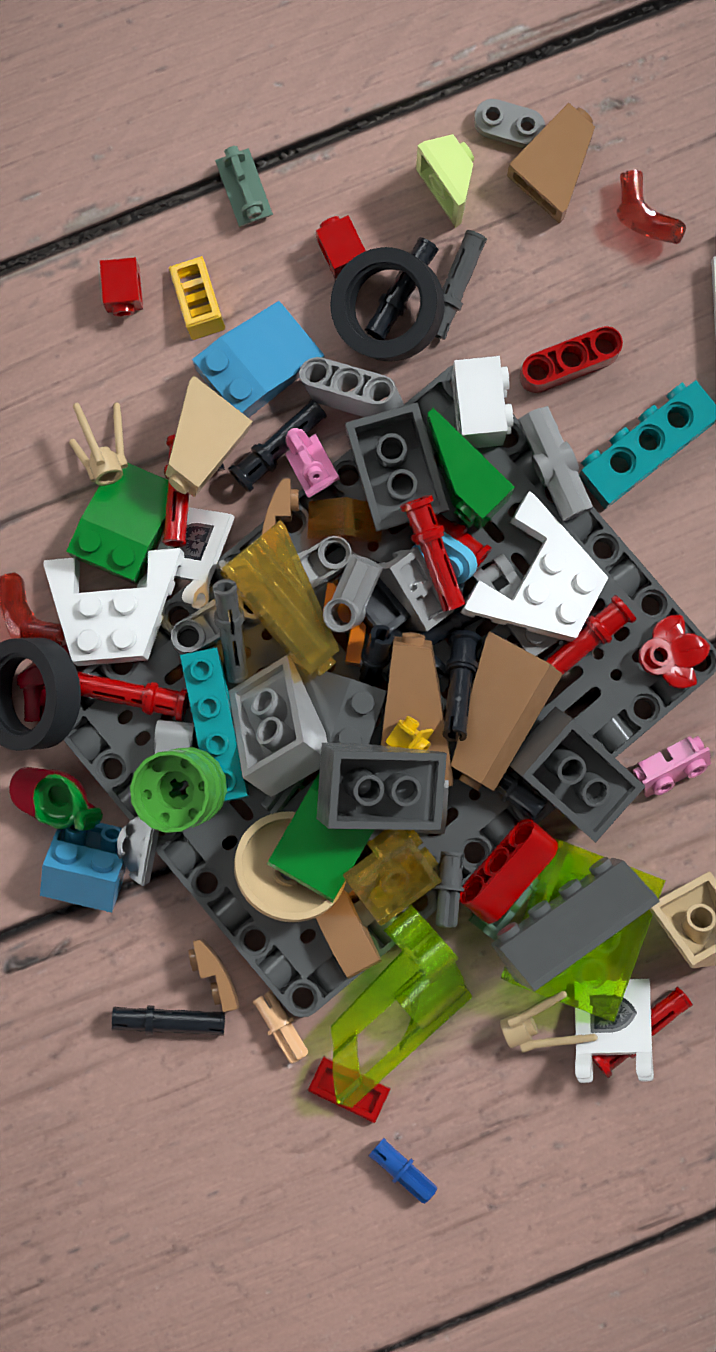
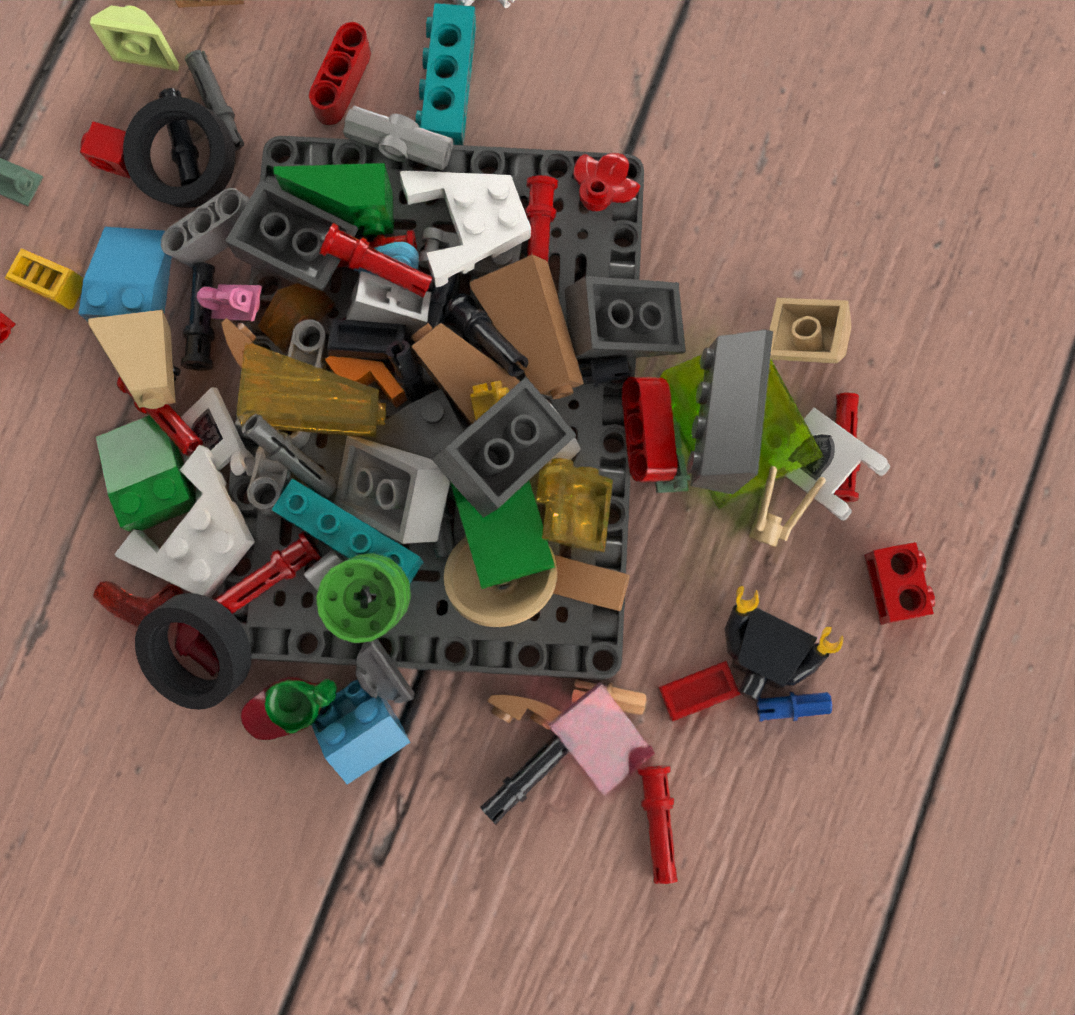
camera: 50 degrees left, 5 degrees down
(104, 465) = (90, 444): tan plant -> none
(236, 1136) = (658, 805): none -> red pin
(245, 1050) = (601, 738): none -> clear pink piece
(354, 591) = (345, 338): light grey piece -> none
(421, 981) = (671, 563): clear neon green panel -> none
(429, 1115) = (771, 648): none -> black torso
(449, 889) = (623, 480): dark grey axle -> none
(479, 401) = (300, 136): white brick -> none
(562, 1163) = (889, 585): none -> red brick
(688, 760) = (685, 245): bright pink hinge -> none

